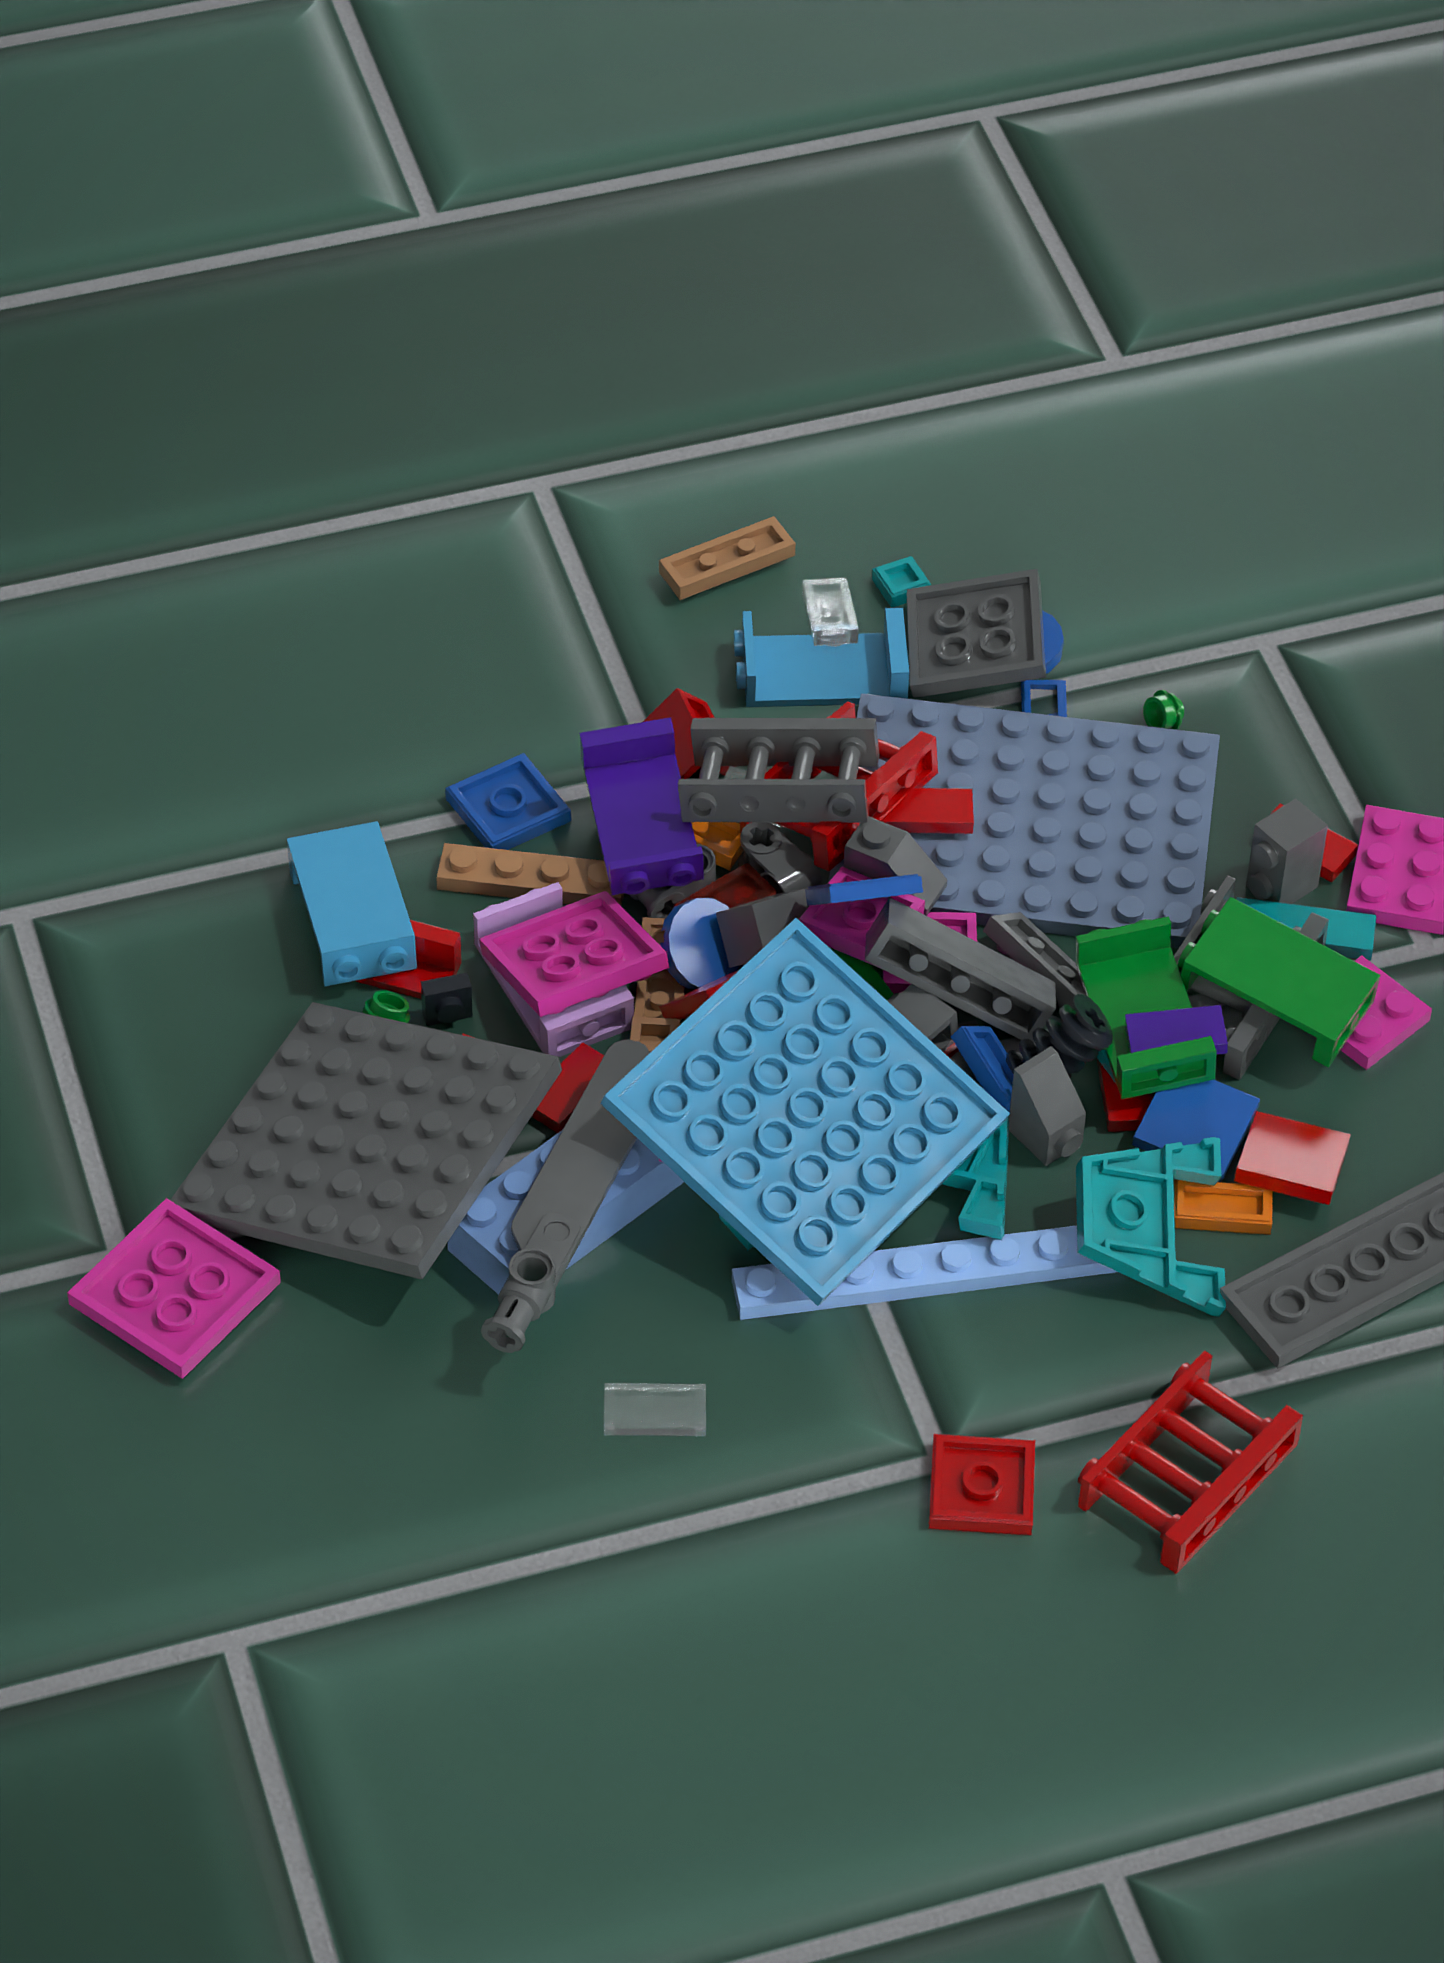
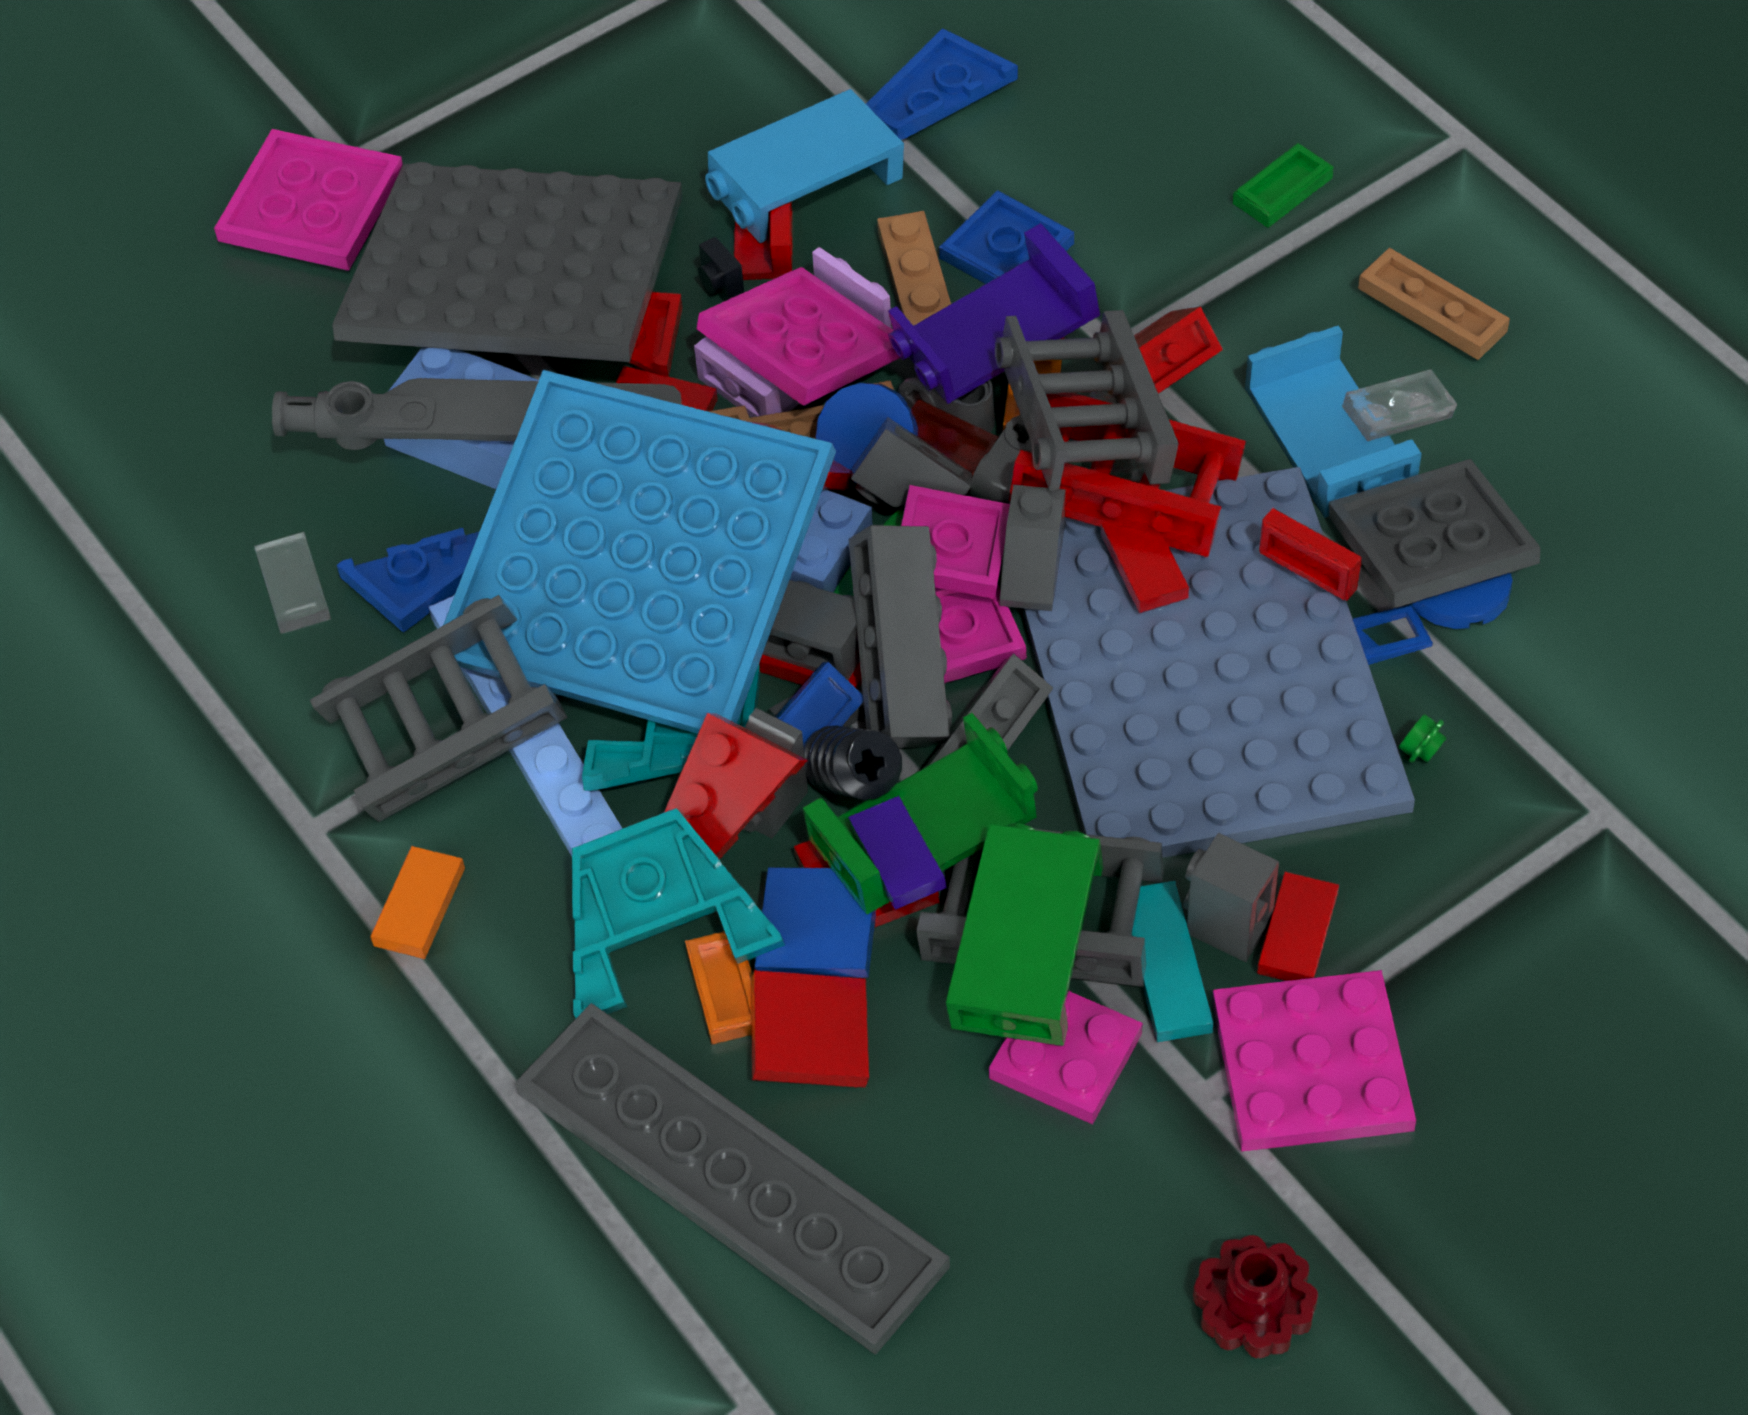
camera: 75 degrees right, 5 degrees up
(287, 785) = (939, 82): none -> blue wing
(388, 1005) = (693, 226): green plate -> none
(536, 608) = (1283, 185): none -> green tile
(700, 1304) = (411, 576): none -> blue wing
(864, 889) = (941, 509): blue tile -> none
(897, 577) = (1497, 457): teal tile -> none
(932, 1281) = (481, 735): none -> dark grey fence
(977, 704) = (1310, 554): none -> red tile
(982, 1484) = (282, 870): red tile -> none
(1058, 1392) = (417, 902): none -> orange tile
(1060, 1125) = (729, 780): none -> red wing
(1211, 1502) = (353, 1089): red fence -> none

